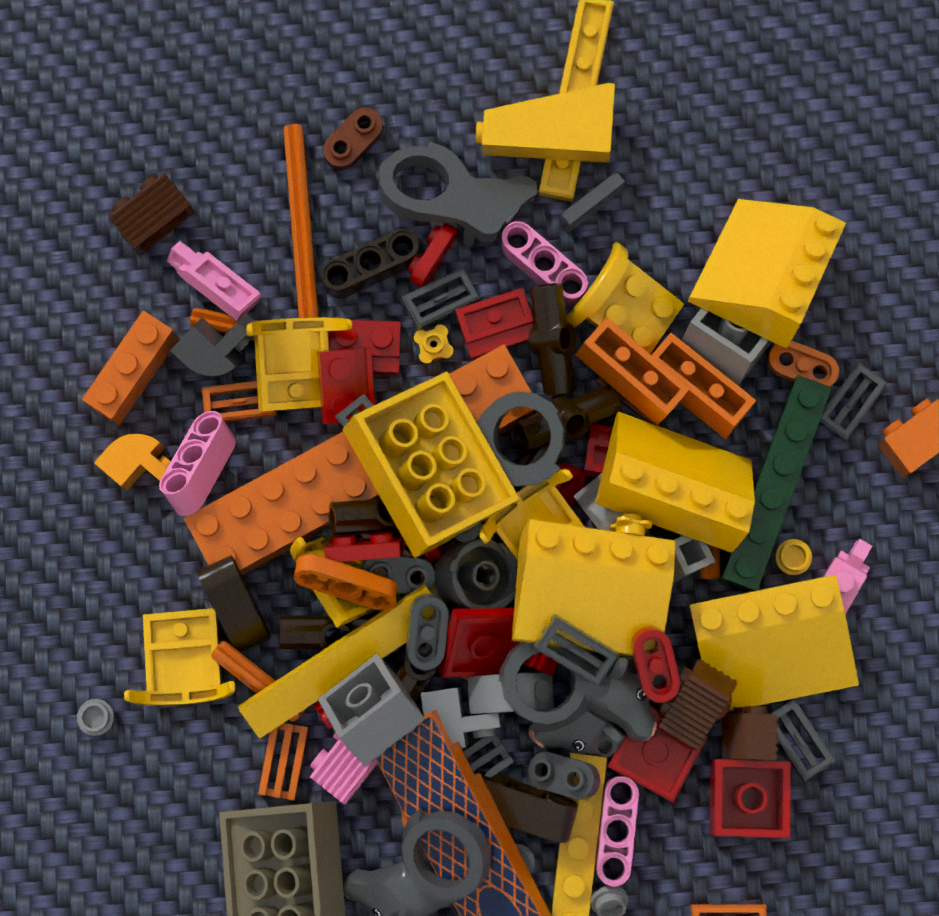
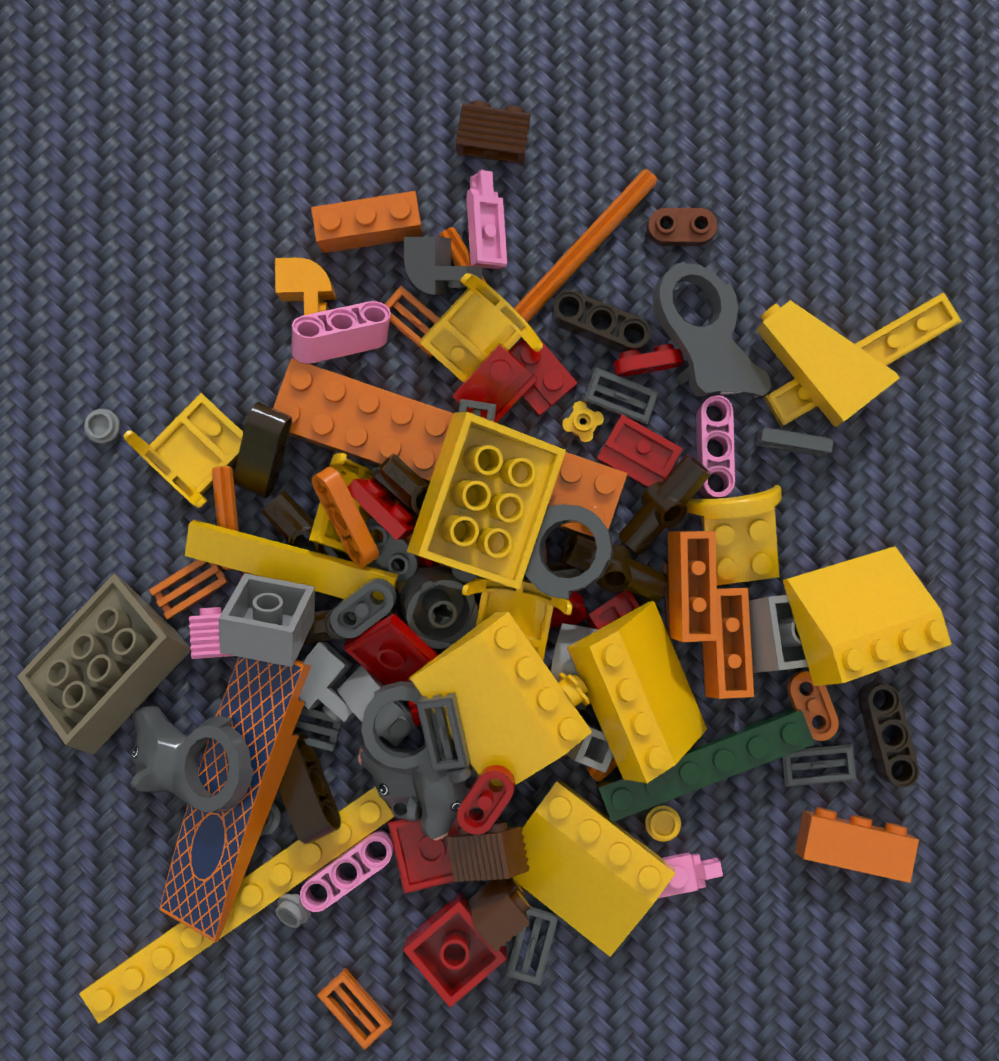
camera: 50 degrees right, 5 degrees up
(561, 775) = (353, 794): dark grey plate -> none
(891, 328) = (901, 744): none -> dark brown beam

